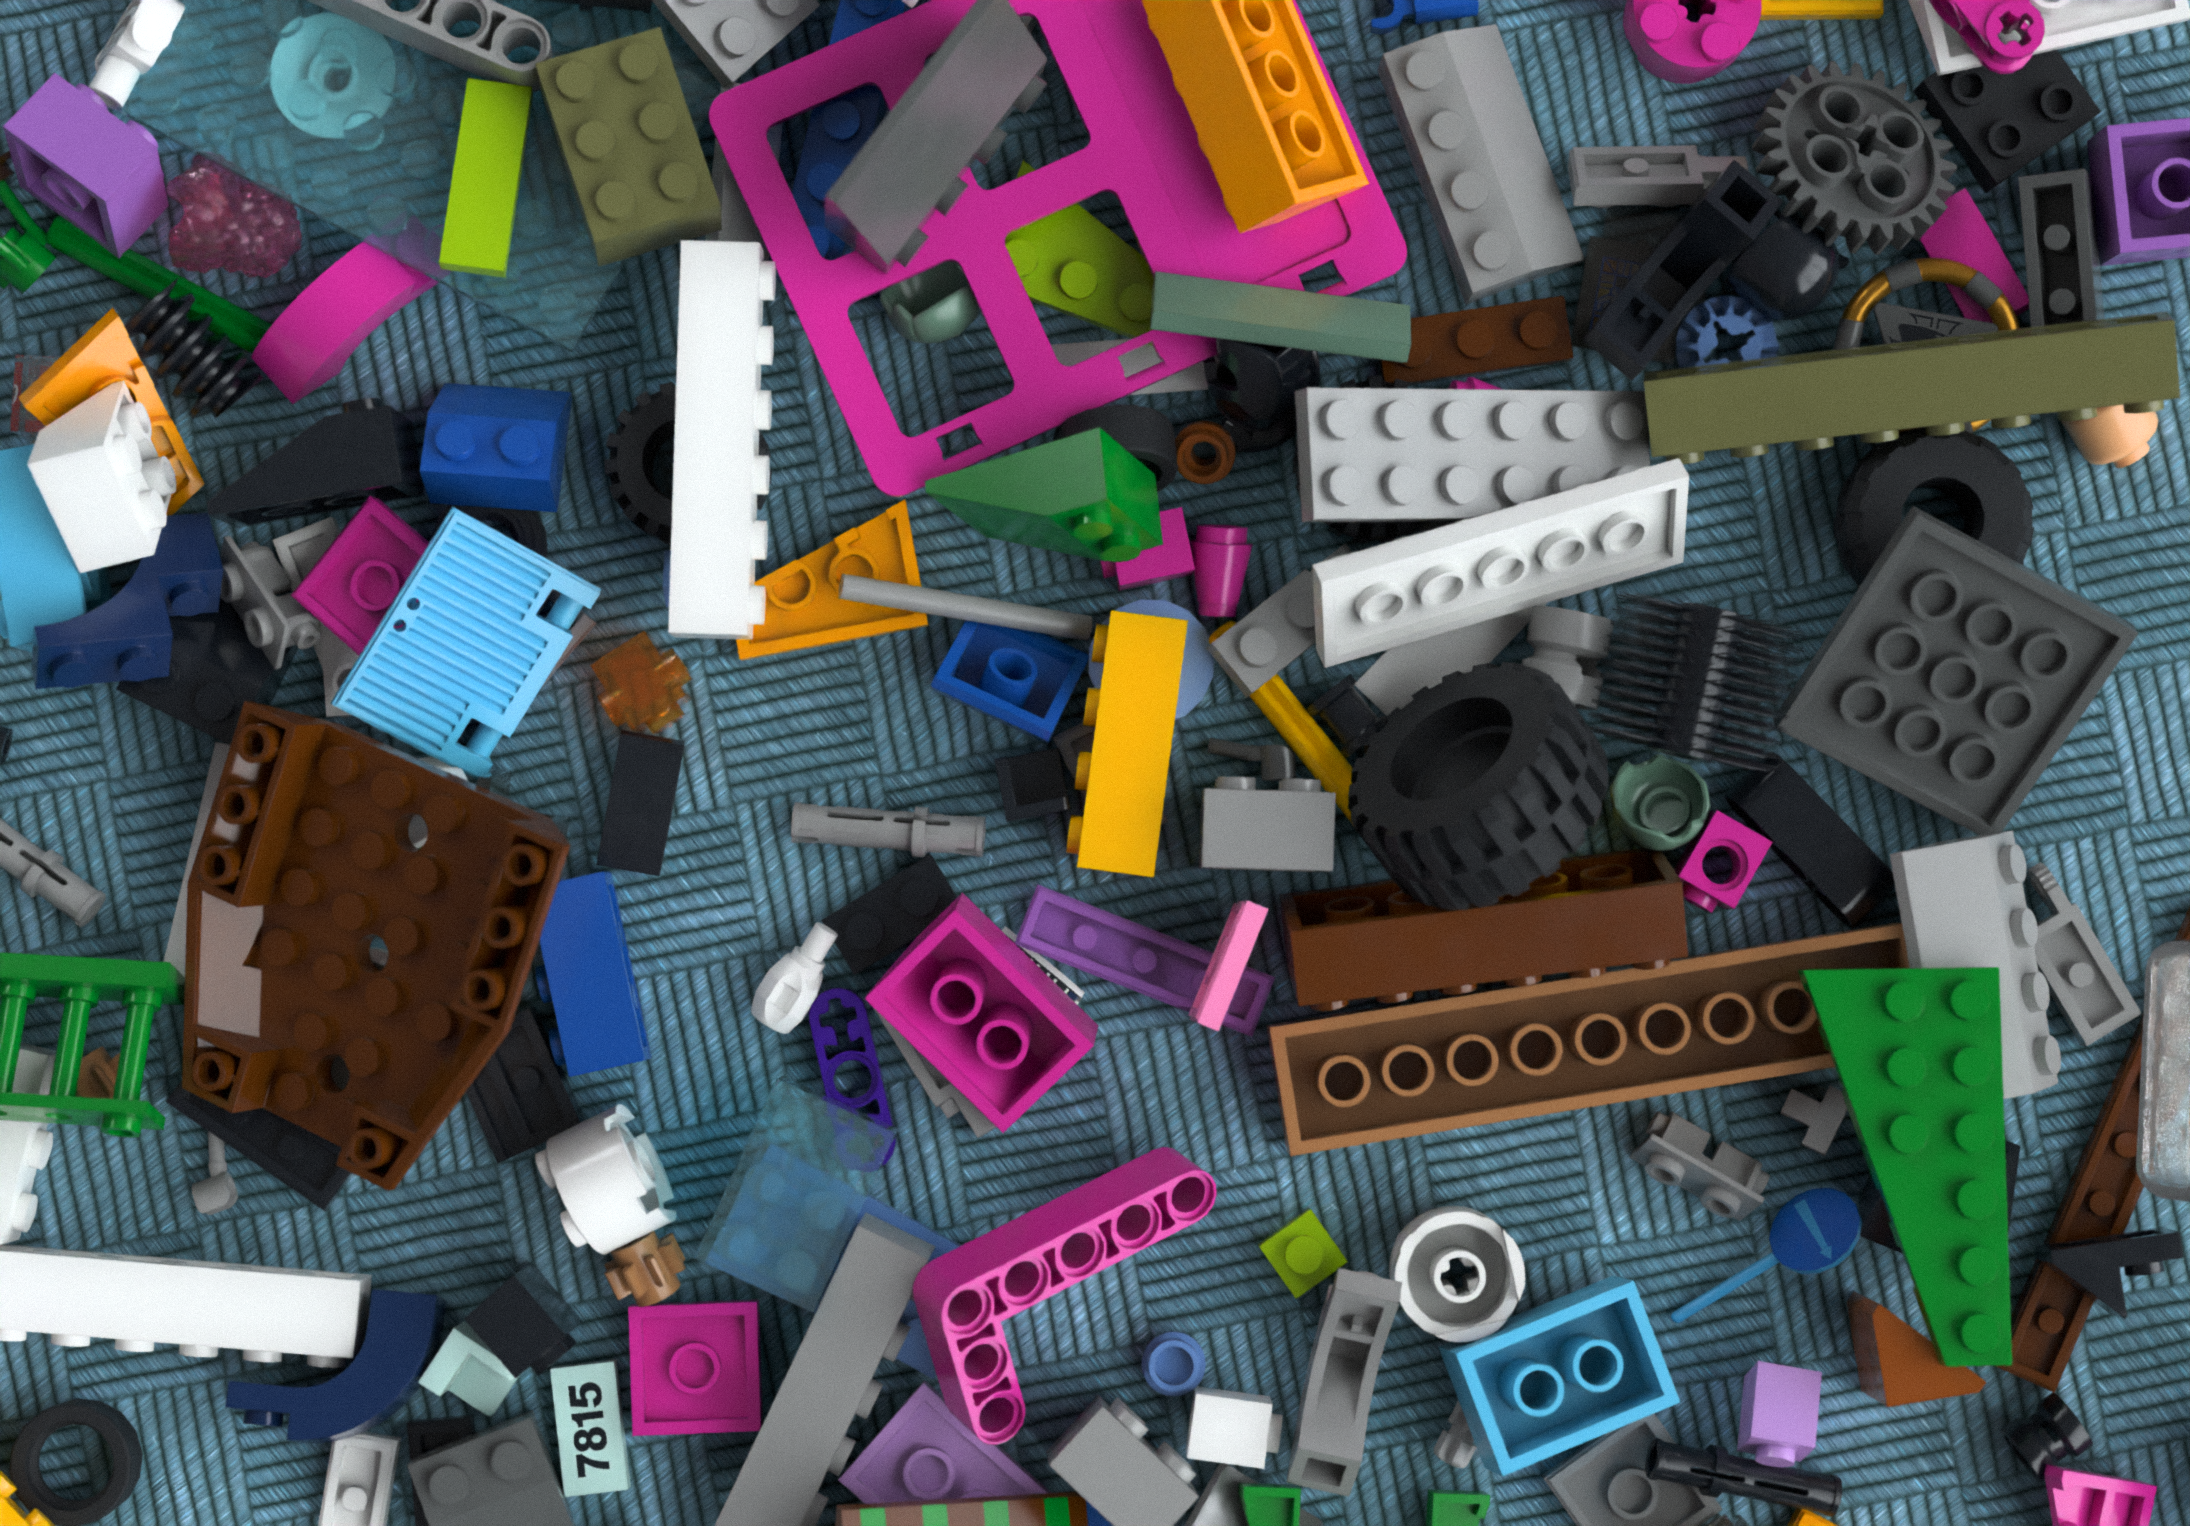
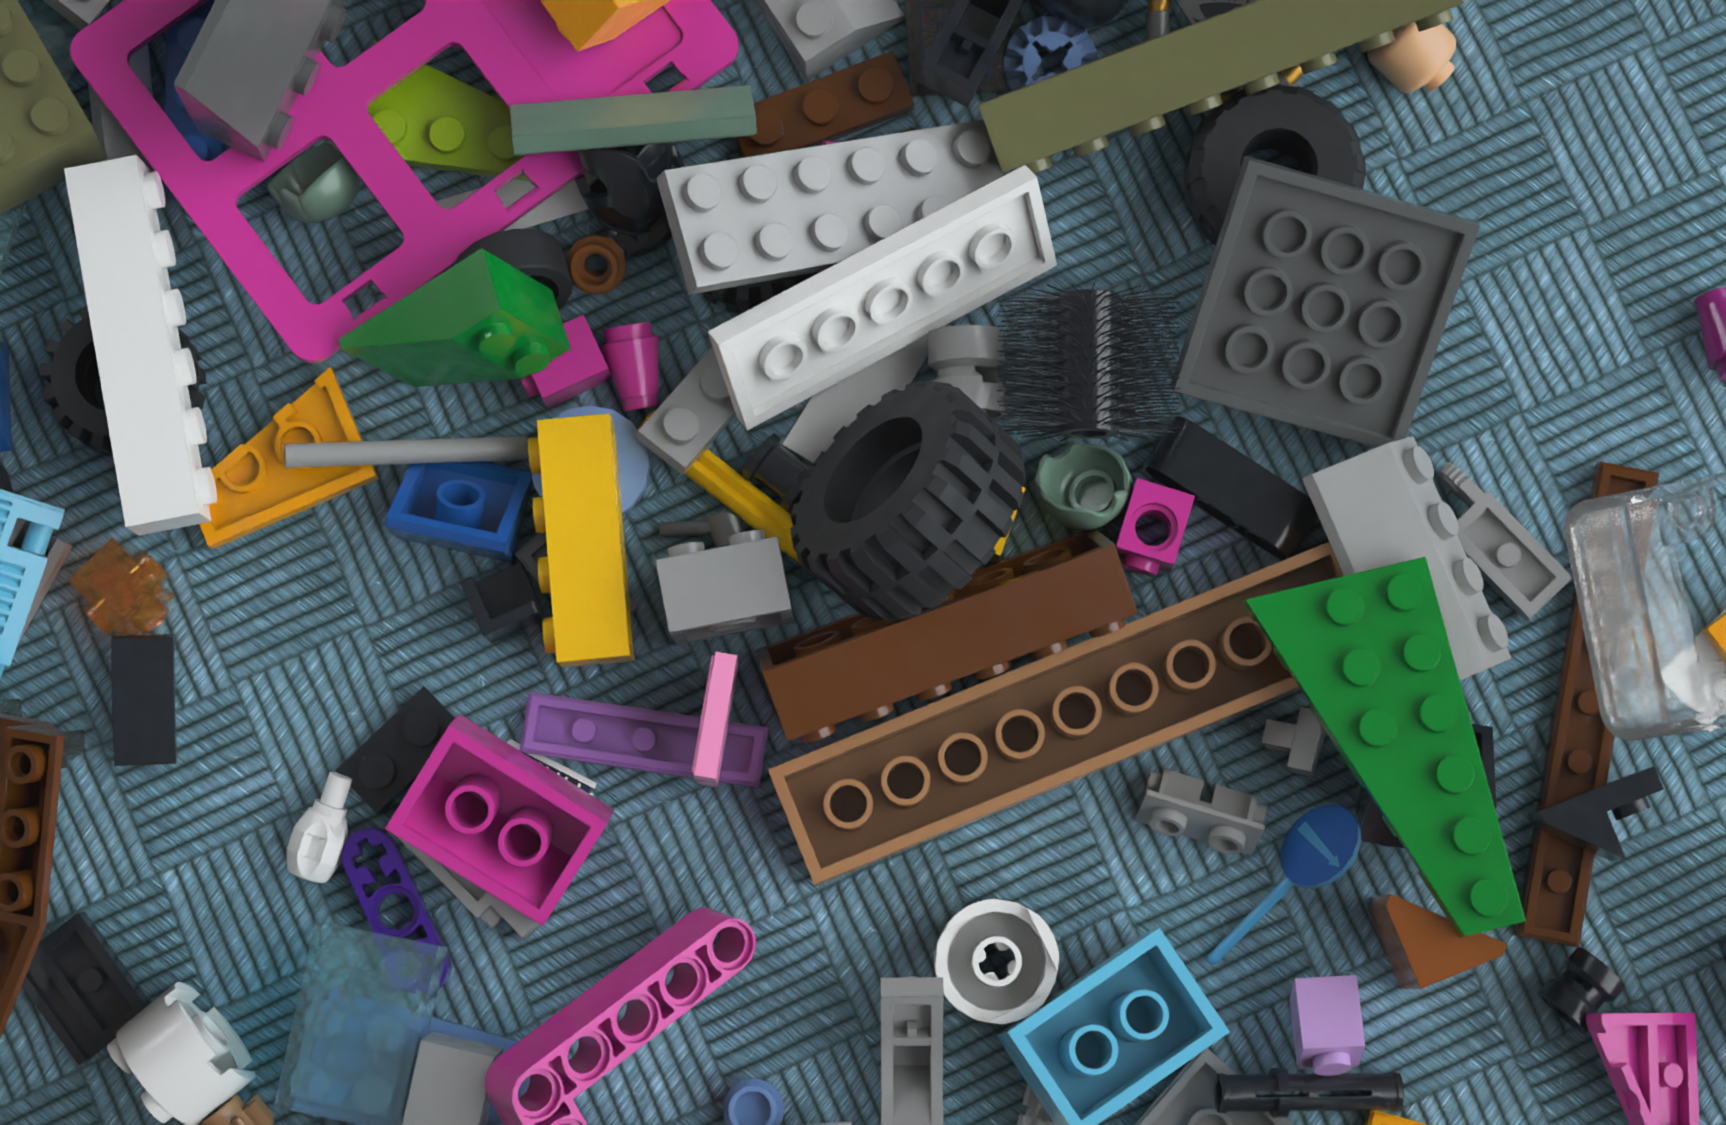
camera: 10 degrees left, 5 degrees down
(590, 979) = (127, 869): blue brick -> none
(897, 830) = (393, 670): light grey pin -> none
(1302, 1253) = (850, 978): lime plate -> none

